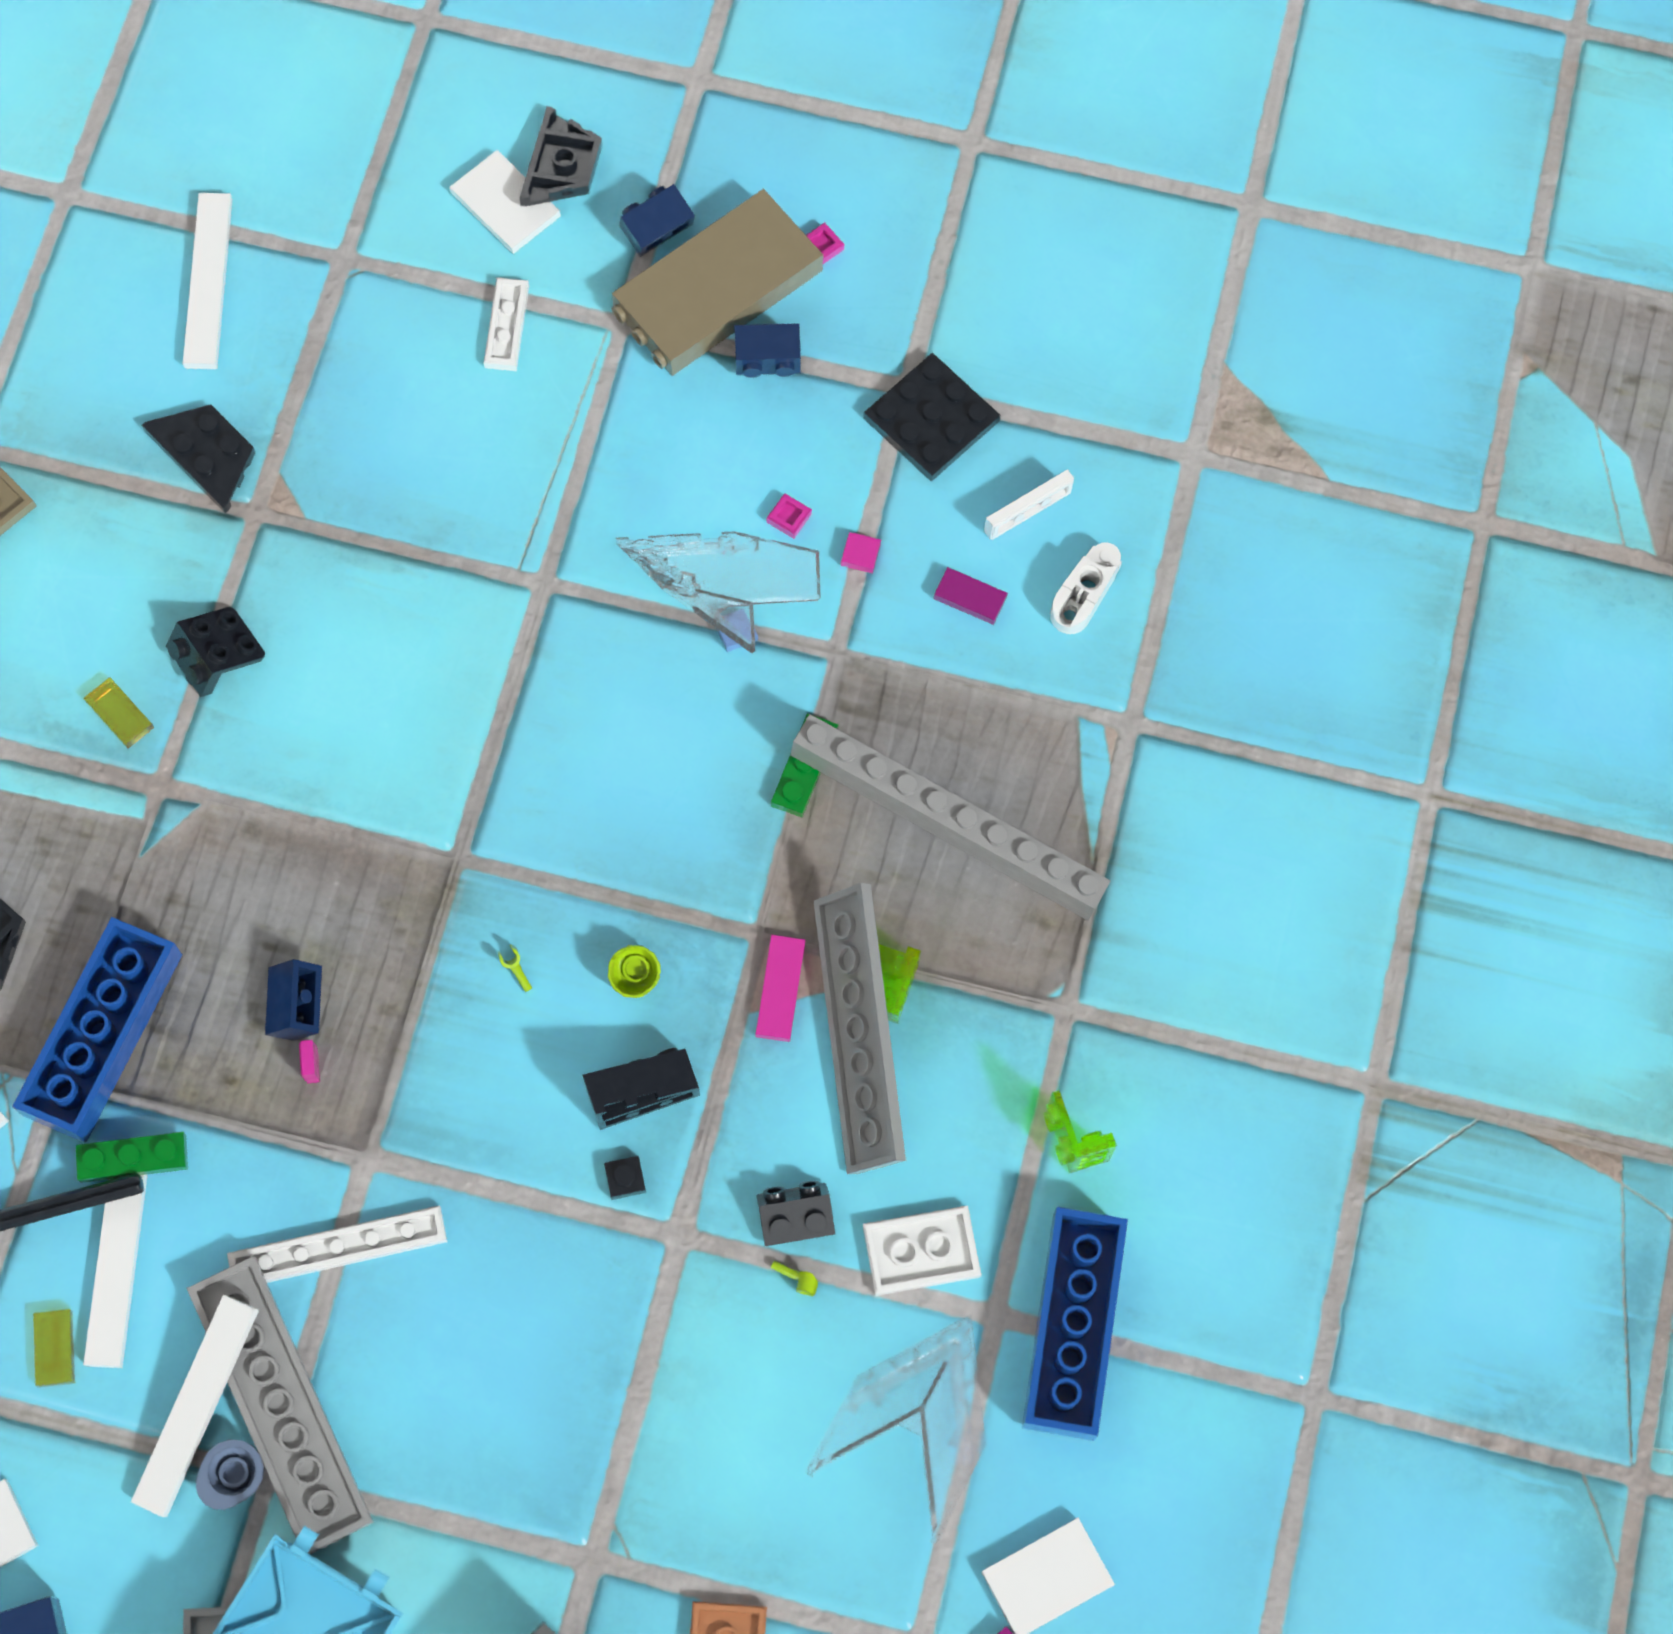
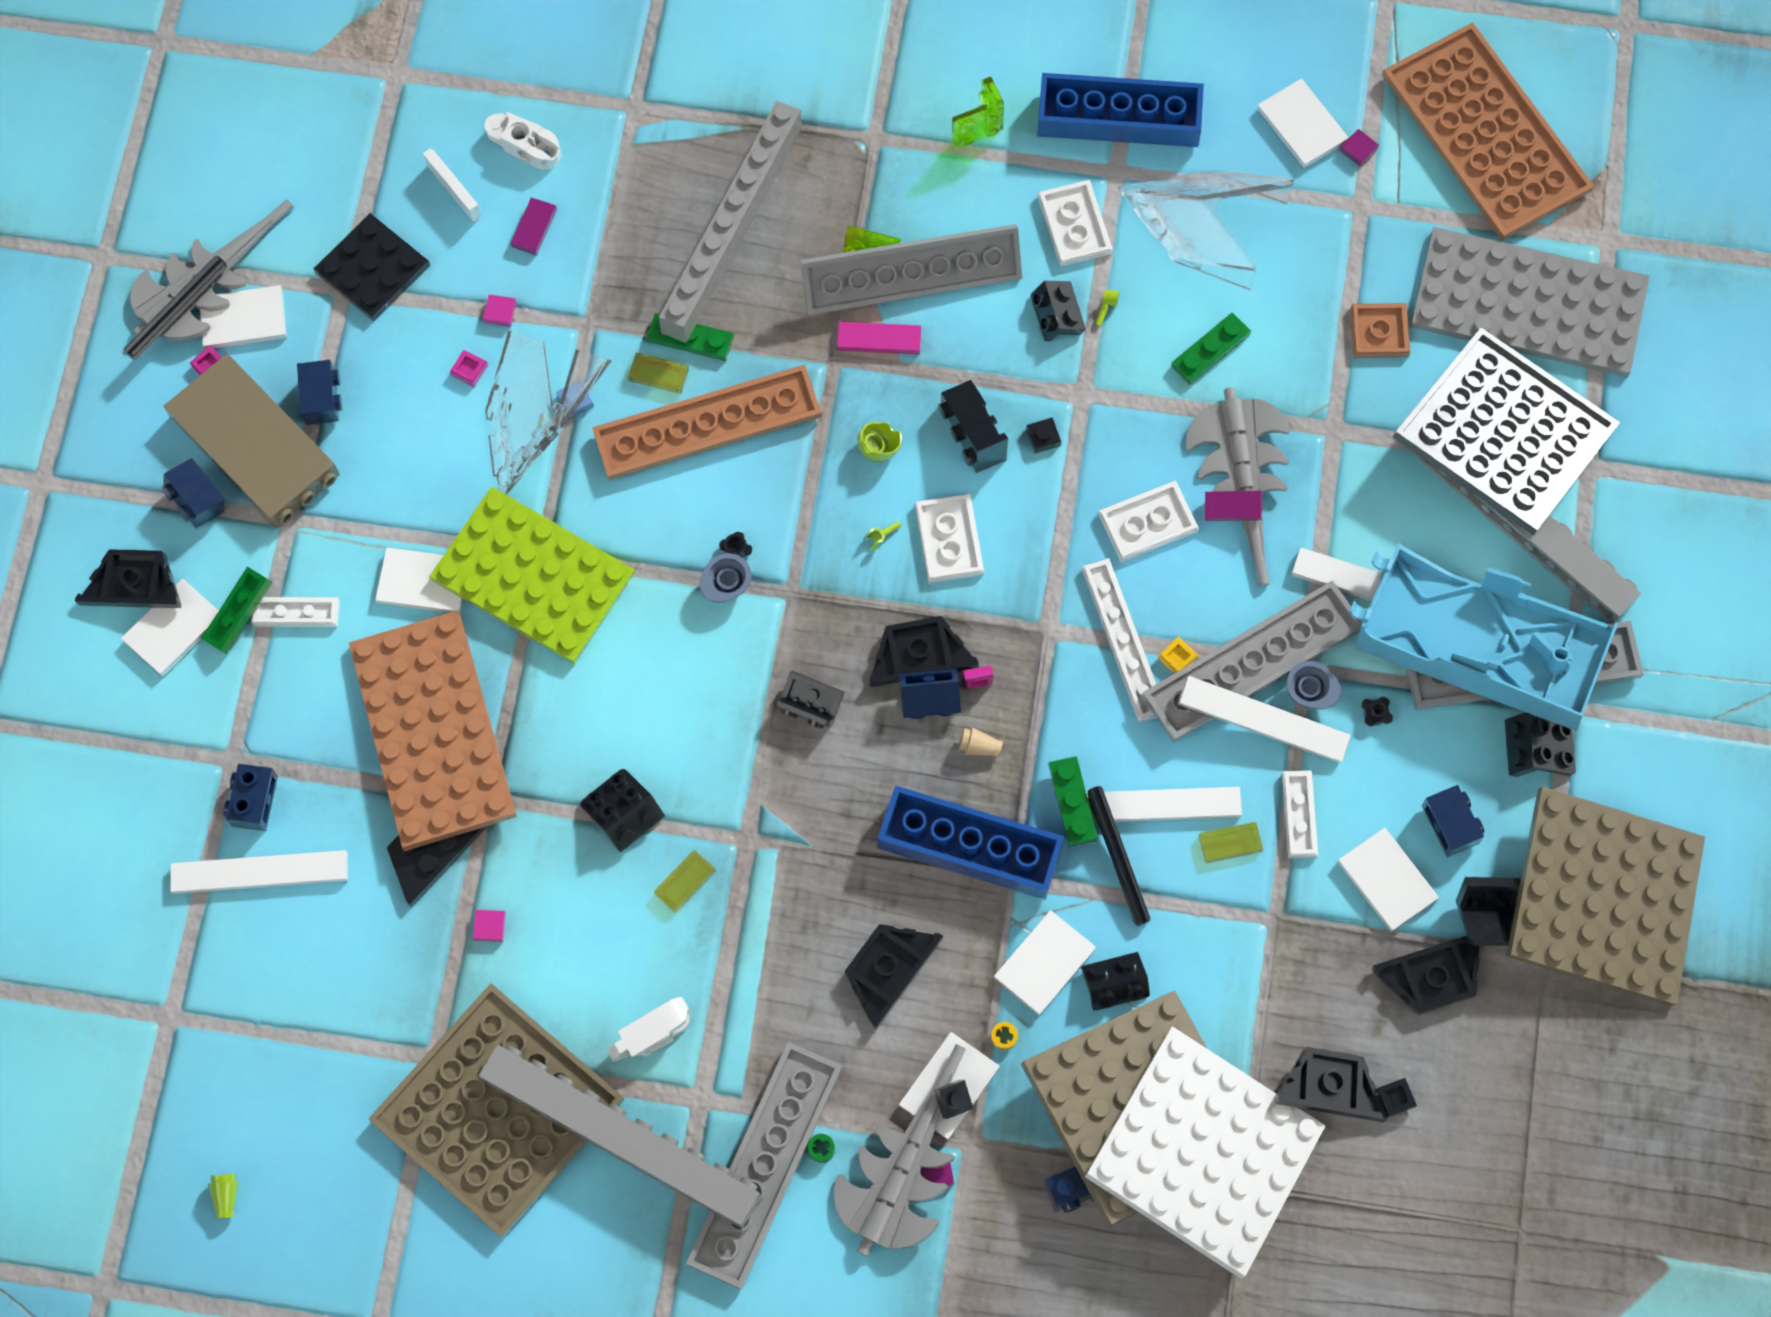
camera: 90 degrees left, 0 degrees up
(75, 1440) = (1299, 814): none -> white tile
(104, 506) = (489, 925): none -> dark pink tile
(198, 1565) = (1371, 717): none -> black plate
(226, 1055) = (979, 744): none -> tan cone
(290, 271) = (250, 797): none -> dark blue brick
(304, 1312) = (1177, 655): none -> yellow tile
(309, 863) = (810, 700): none -> black bracket
(339, 454) = (432, 730): none -> nougat plate
(354, 998) = (917, 648): none -> black wing
(388, 1529) = (1347, 576): none -> white tile
(474, 777) = (725, 578): none -> sand blue piece
(491, 1297) = (1148, 521): none -> white tile
(491, 1405) = (1233, 505): none -> magenta tile
(501, 1048) = (949, 538): none -> white tile
(510, 261) = (236, 610): none -> green plate
(513, 570) = (532, 575): none -> lime plate
(517, 788) = (736, 539): none -> black plate
(525, 455) = (407, 582): none -> white tile
(602, 1425) = (1236, 430): none -> light grey animal
(686, 776) = (706, 422): none -> nougat plate
(723, 1408) = (1211, 348): none -> green plate
(759, 725) = (658, 373): none -> clear yellow tile
(879, 279) = (249, 319): none -> white tile
(887, 204) = (175, 307): none -> black axle
(898, 201) = (150, 298): none -> light grey animal

